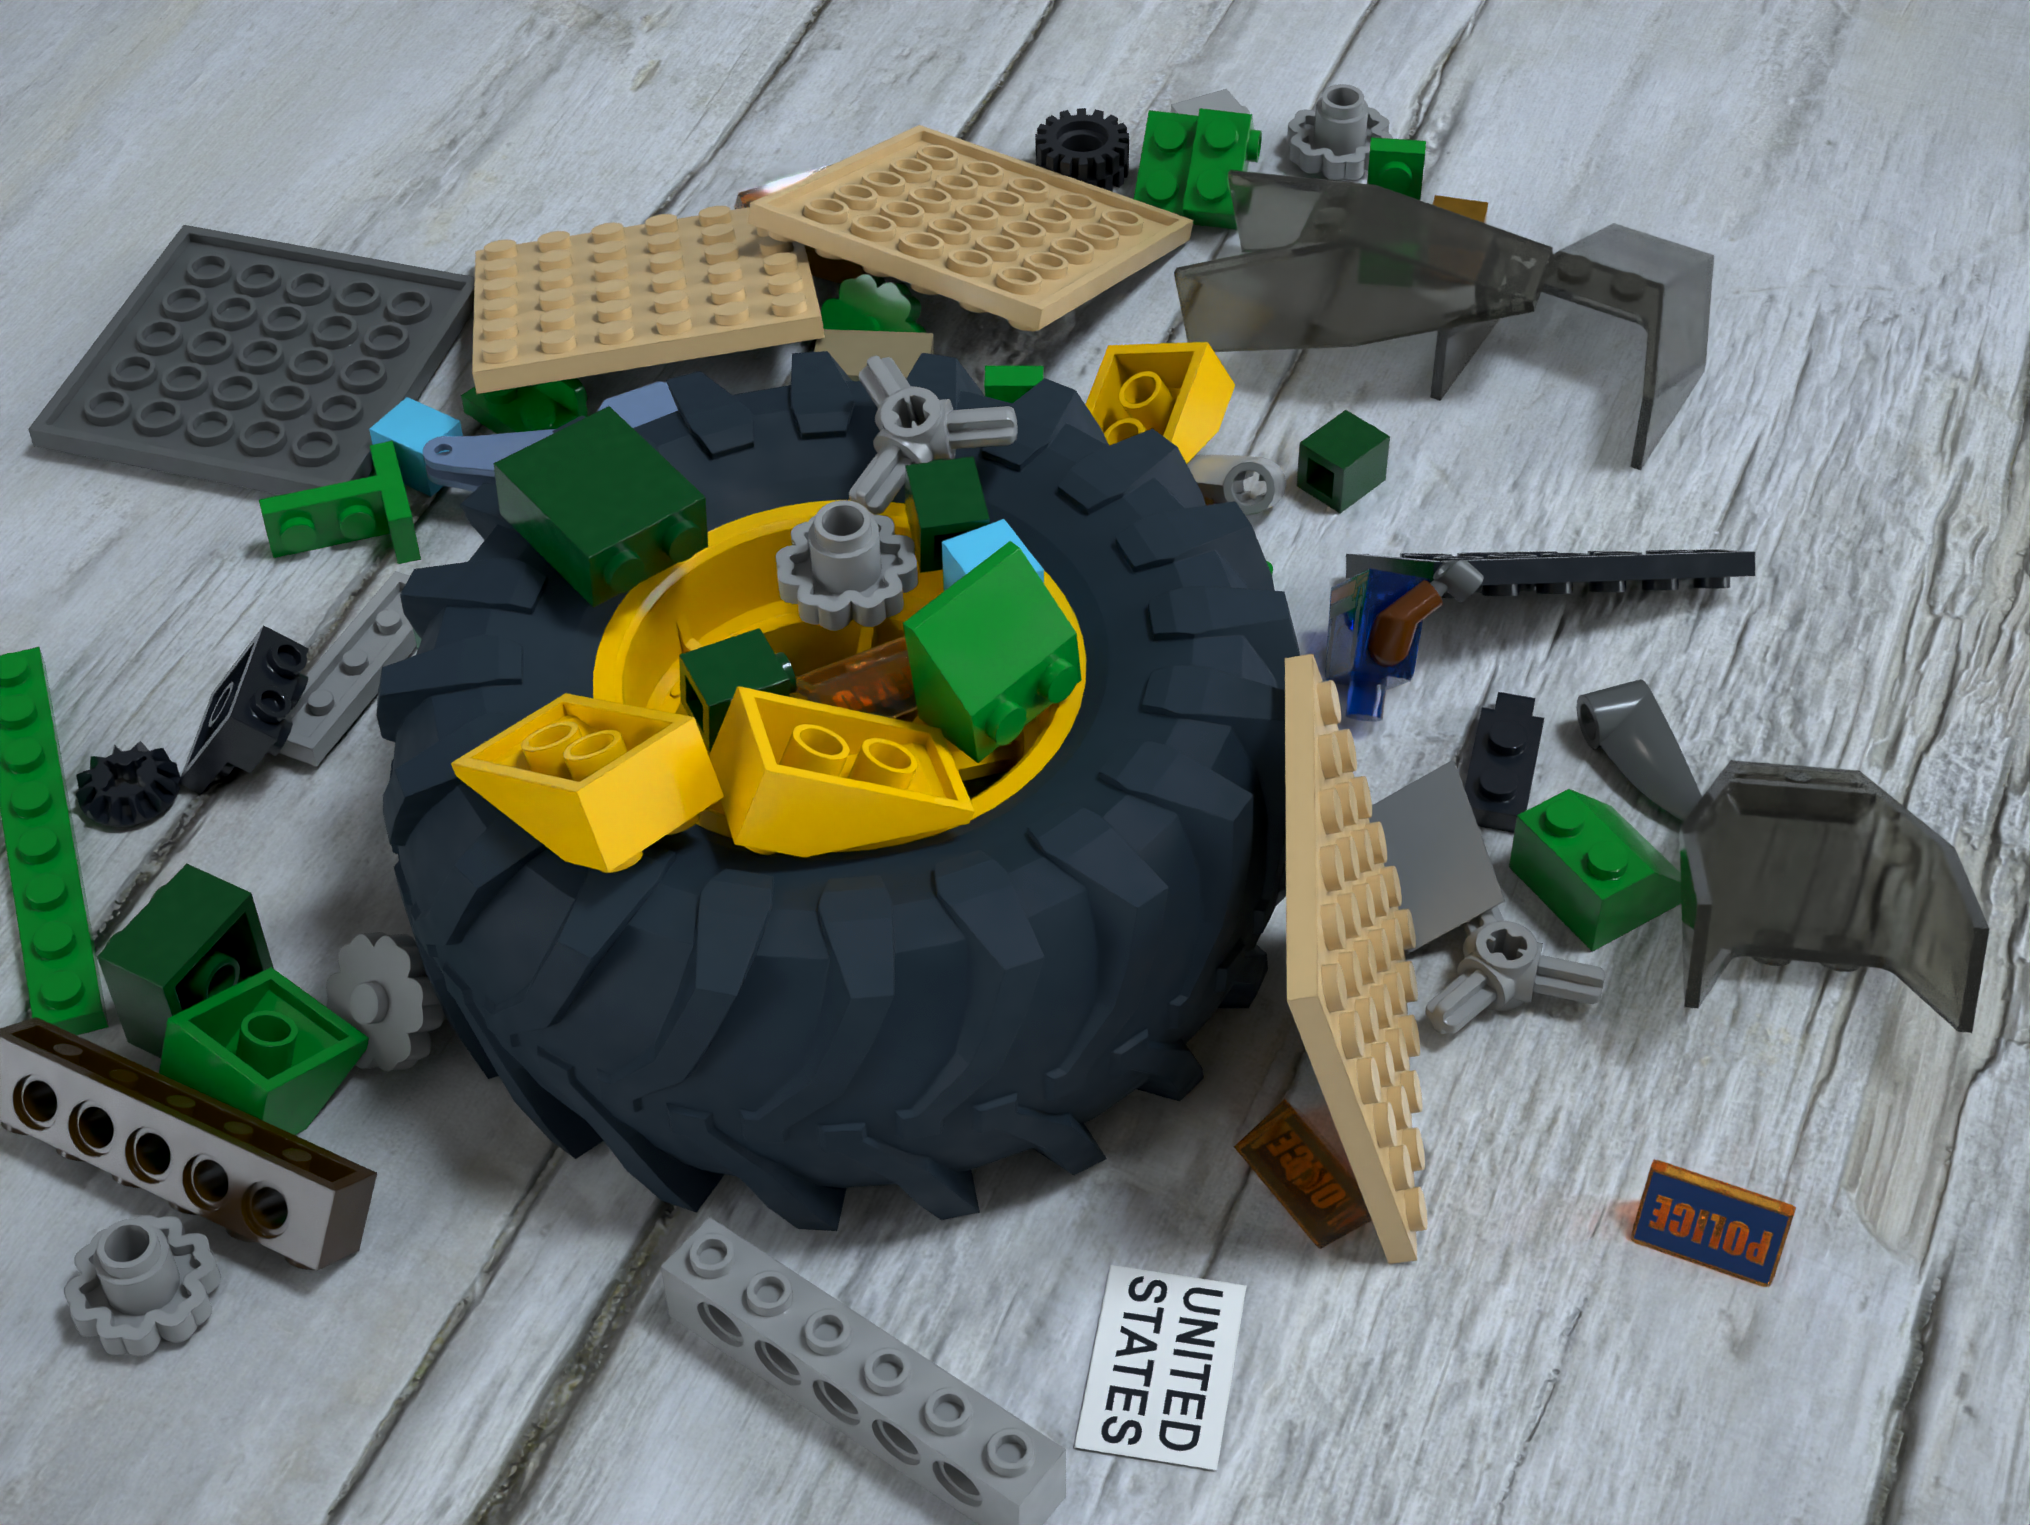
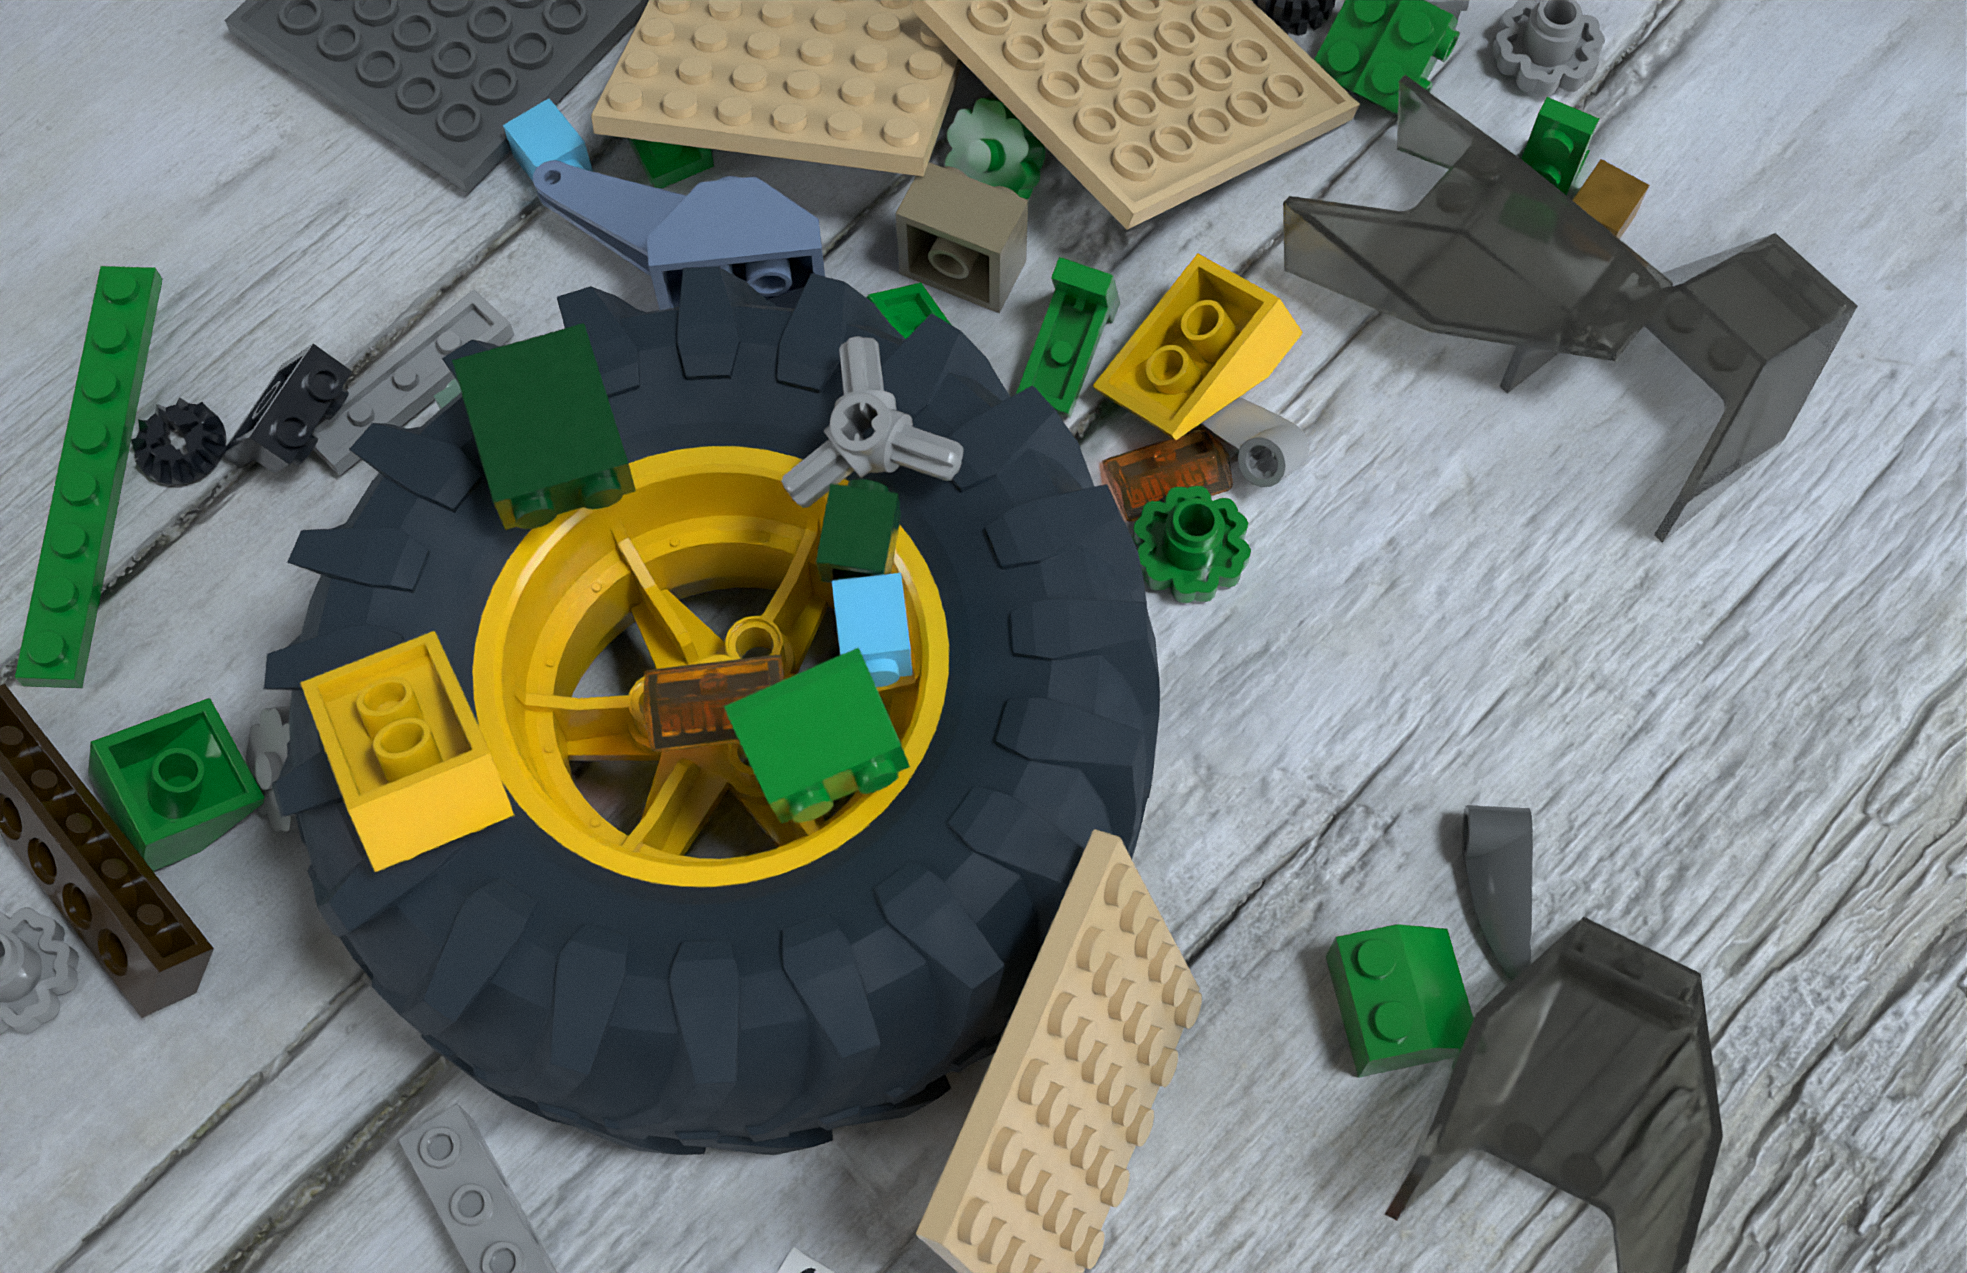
camera: 20 degrees right, 20 degrees up
(181, 950) = (137, 668): dark green brick -> none
(345, 512) = (464, 205): green bracket -> none
(714, 672) = (588, 677): dark green brick -> none
(830, 776) = (631, 816): yellow slope -> none
(846, 567) = (748, 563): light grey plant -> none
(1343, 461) = (1374, 447): dark green brick -> none
(1379, 627) = (1311, 670): torso -> none
(1437, 854) = (1246, 933): light grey sticker -> none
(1503, 761) = (1369, 844): black hinge -> none
(1503, 971) = (1238, 1092): light grey bush -> none
(1555, 572) = (1485, 649): black wing -> none

